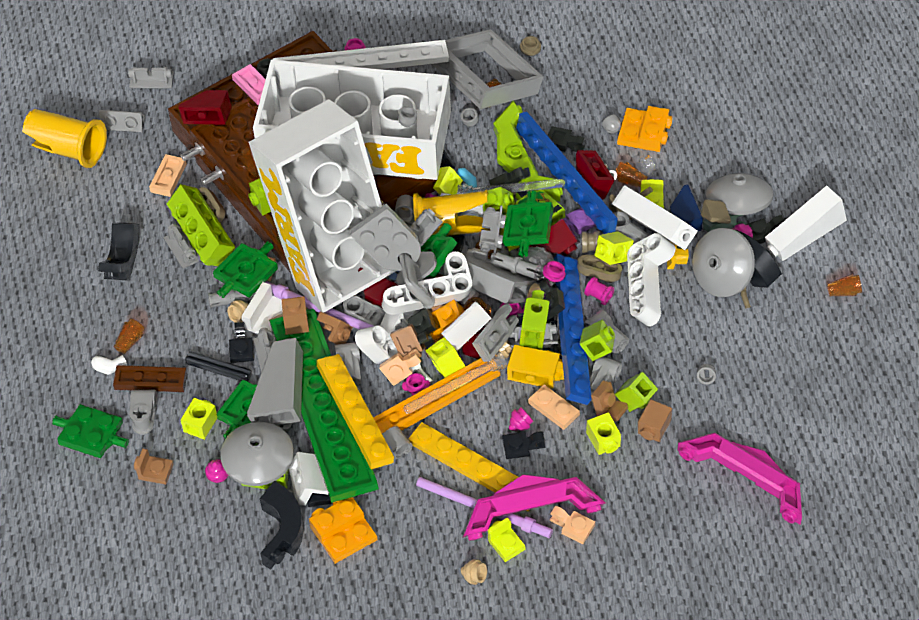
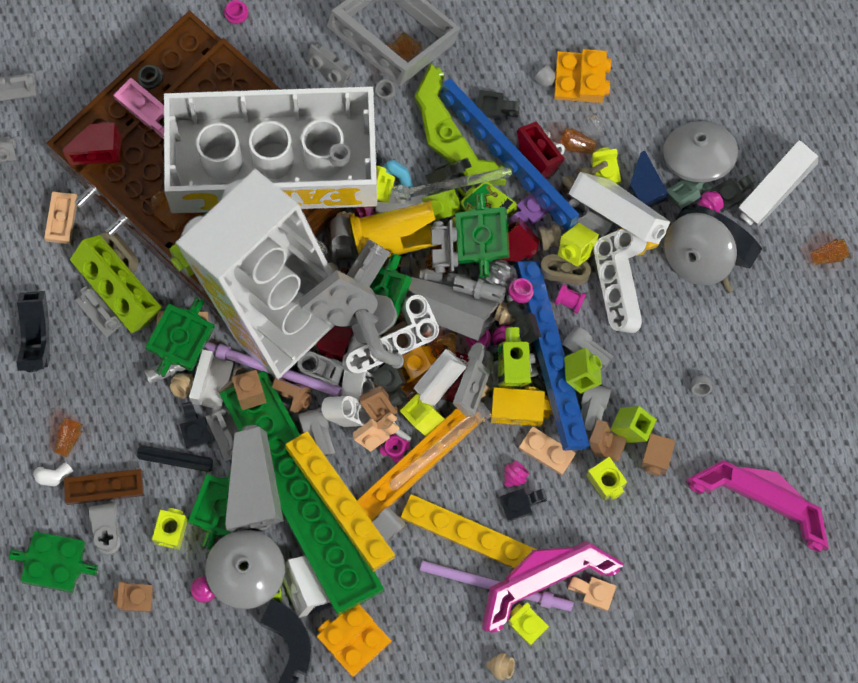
camera: 15 degrees left, 20 degrees up
(380, 57) = (256, 52): white plate -> none
(715, 211) = (682, 186): dark tan slope -> none

